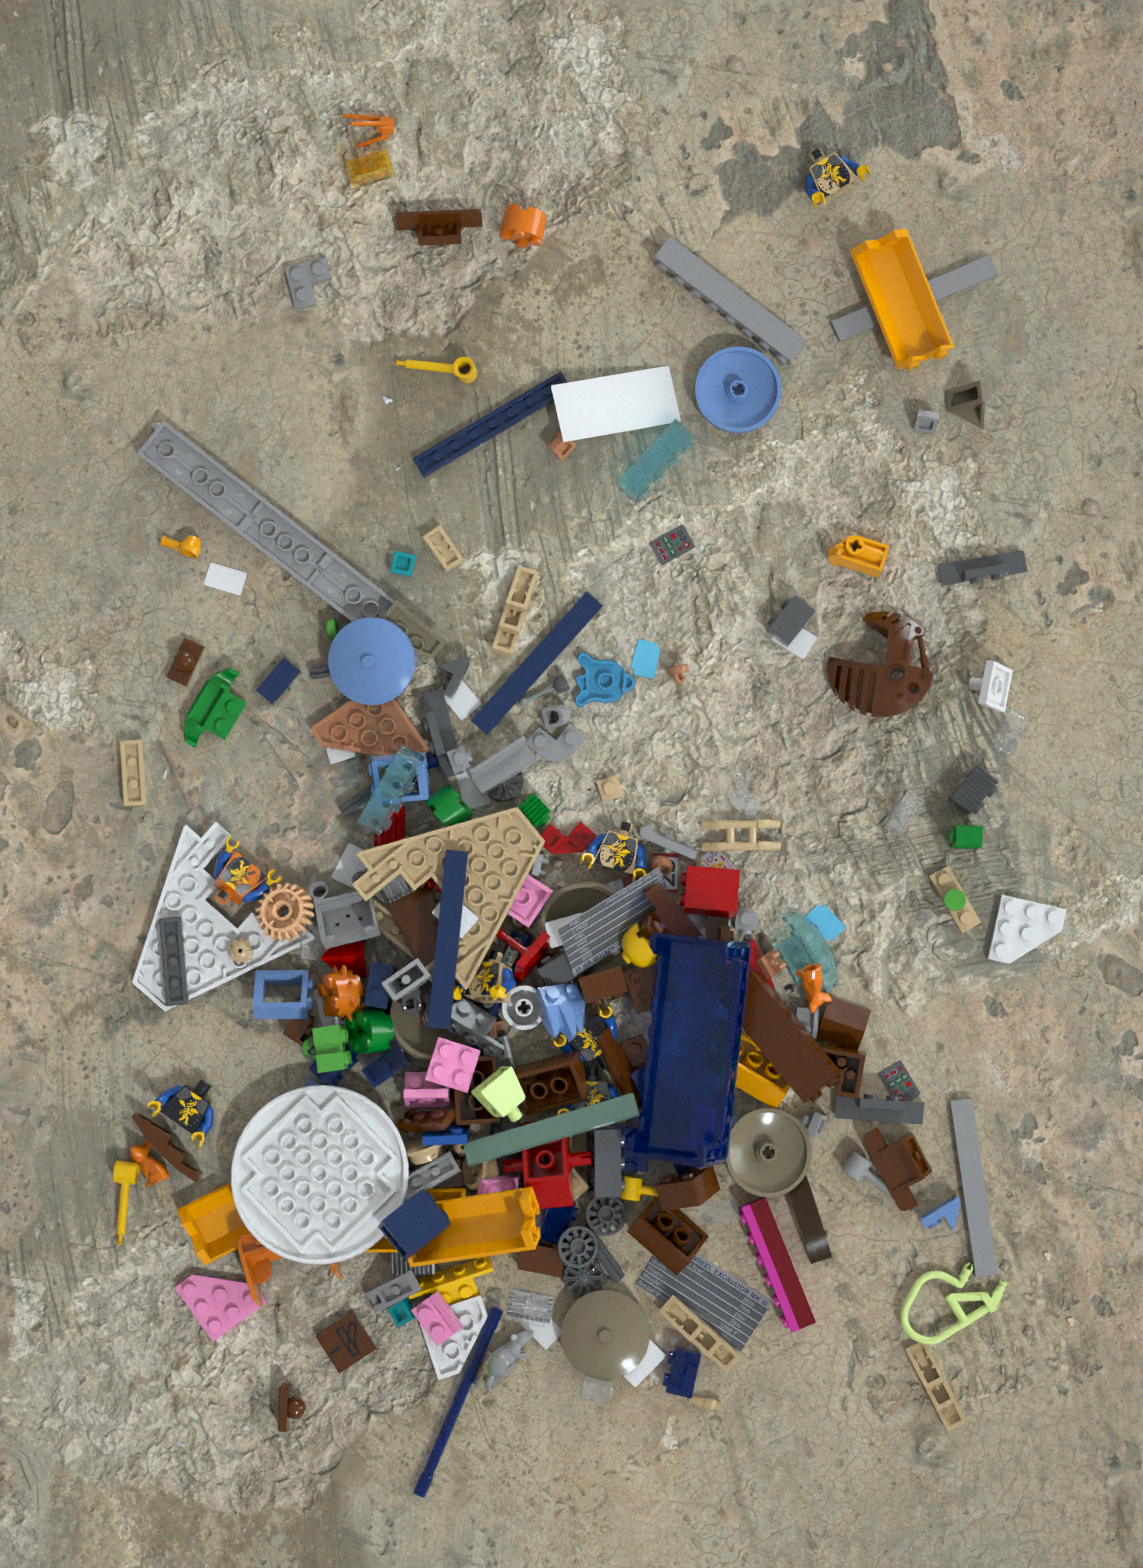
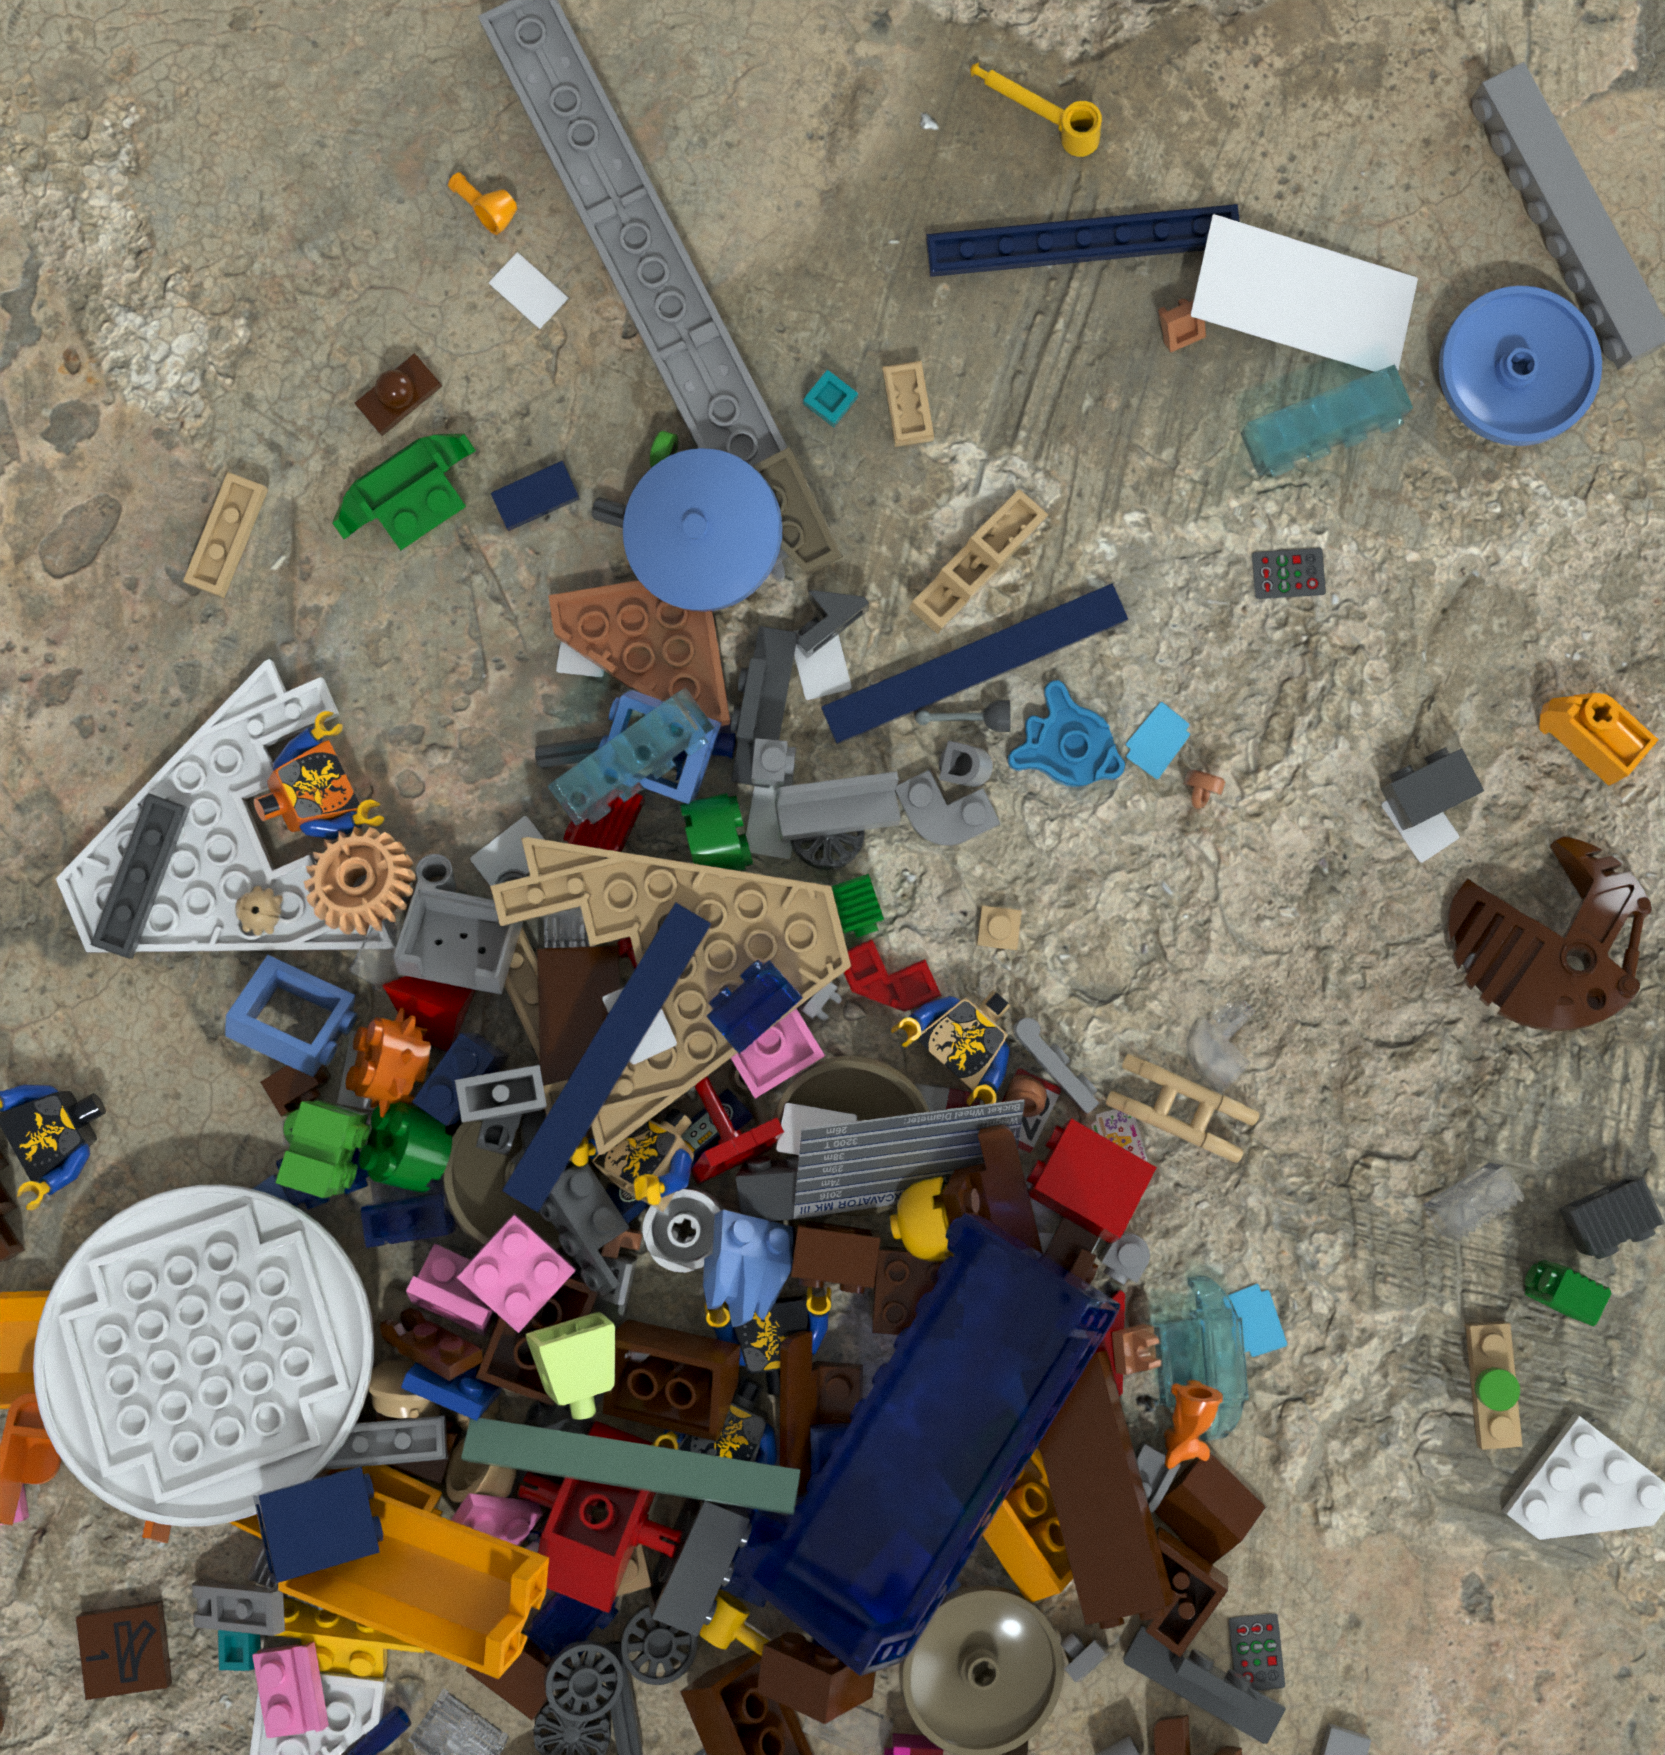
camera: 20 degrees right, 0 degrees up
(507, 881) = (754, 1005): none -> clear blue brick

